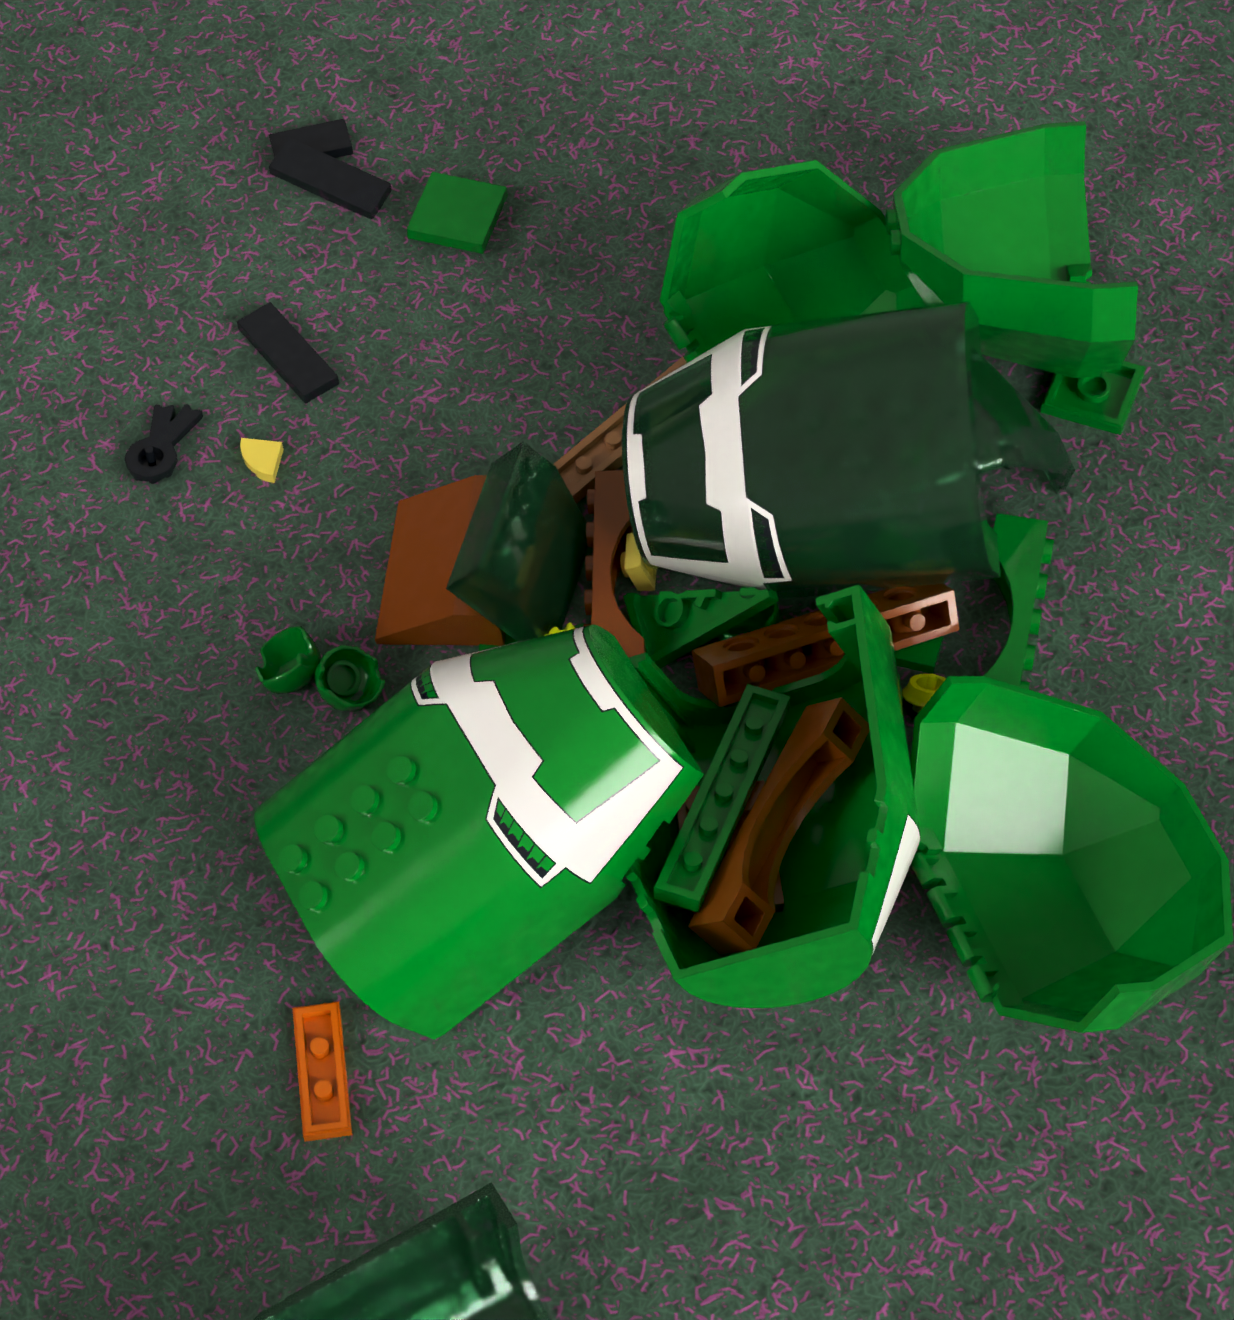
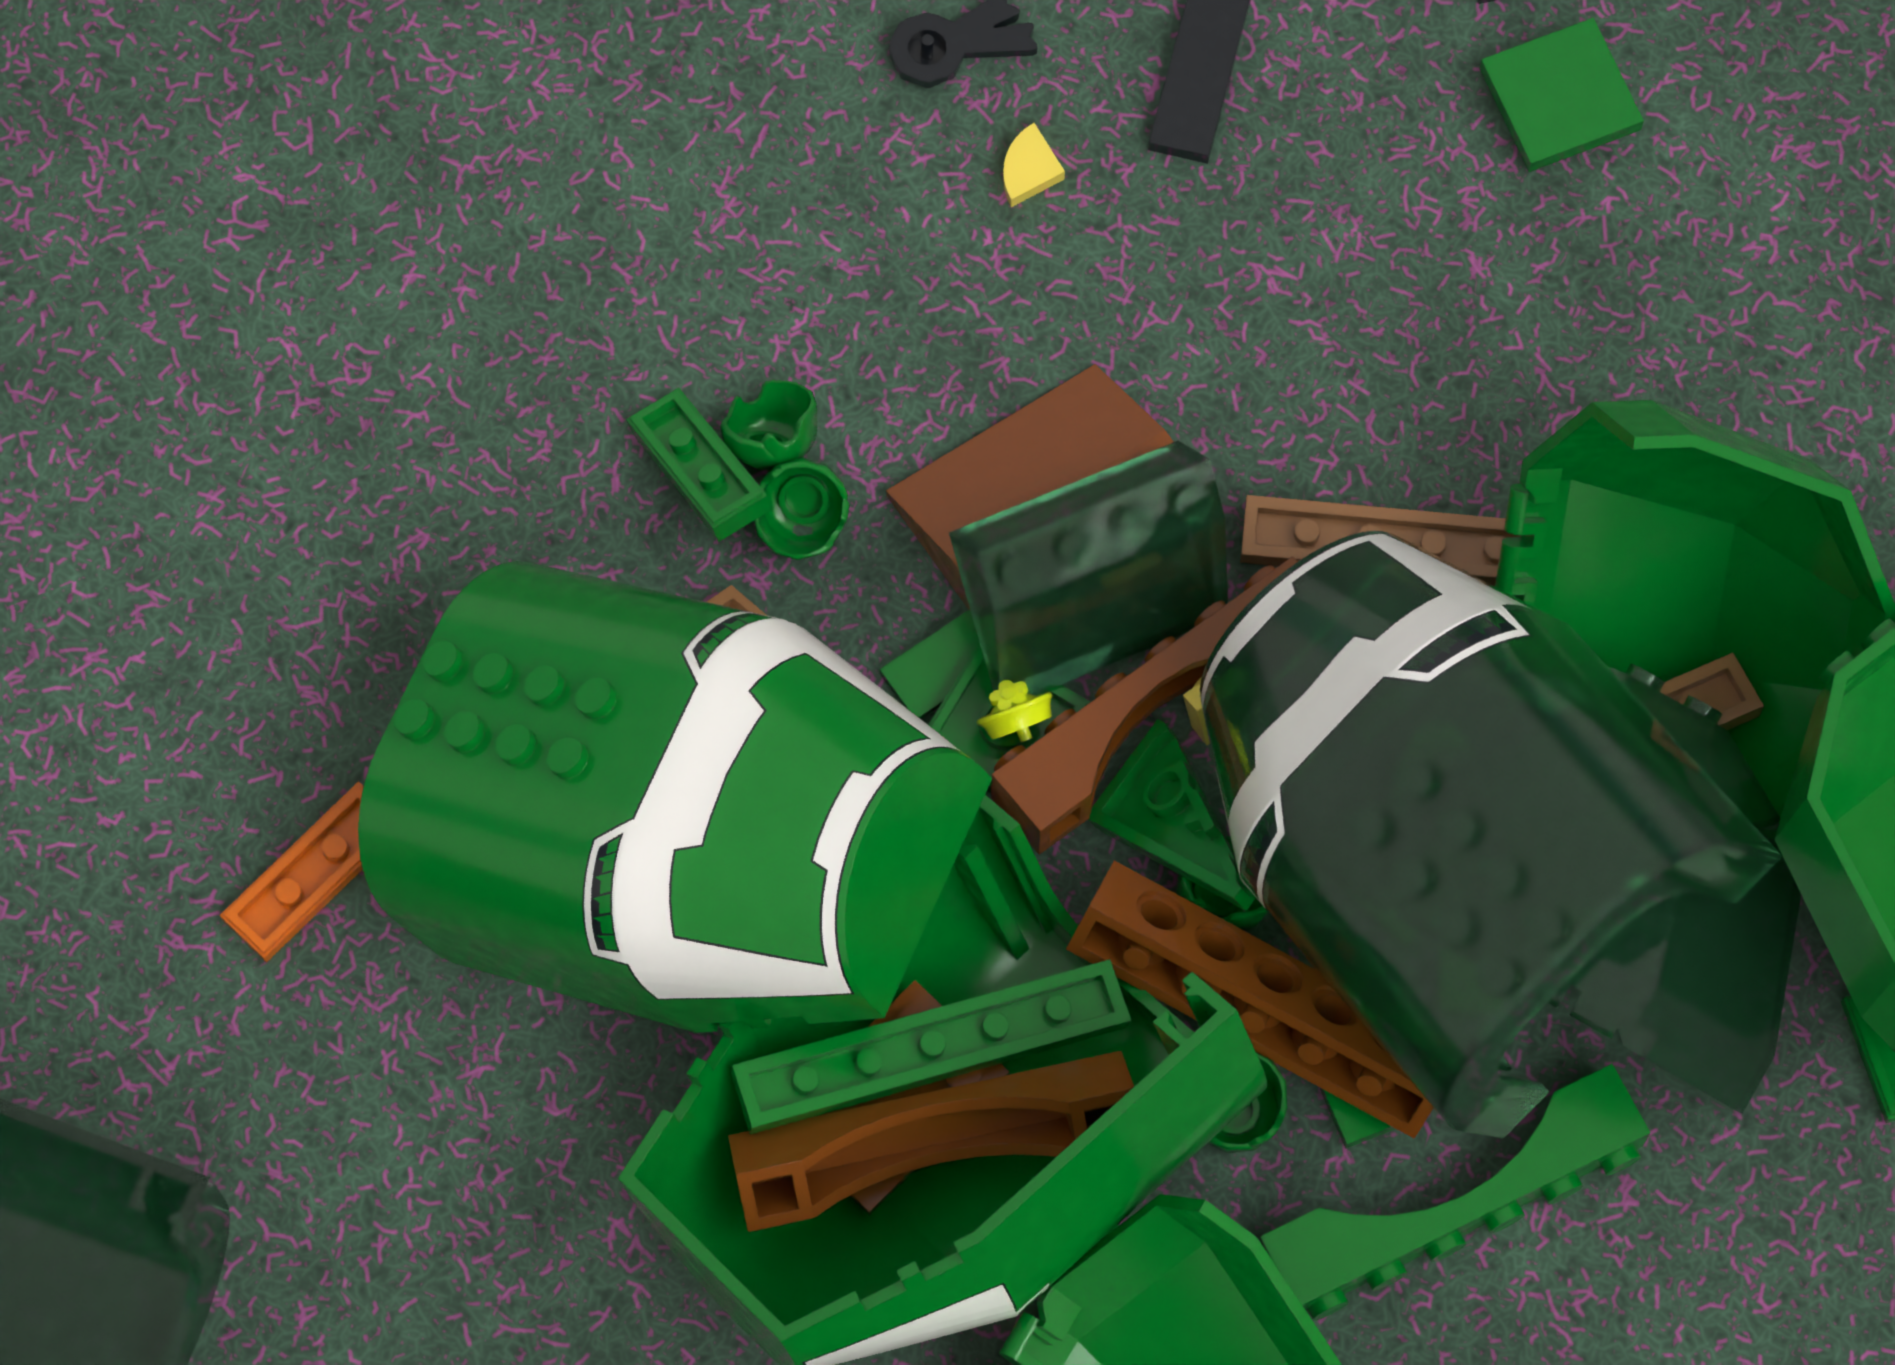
camera: 50 degrees right, 15 degrees up
(277, 708) = (699, 464): none -> green tile
(921, 689) = (1304, 1166): neon yellow hat -> none

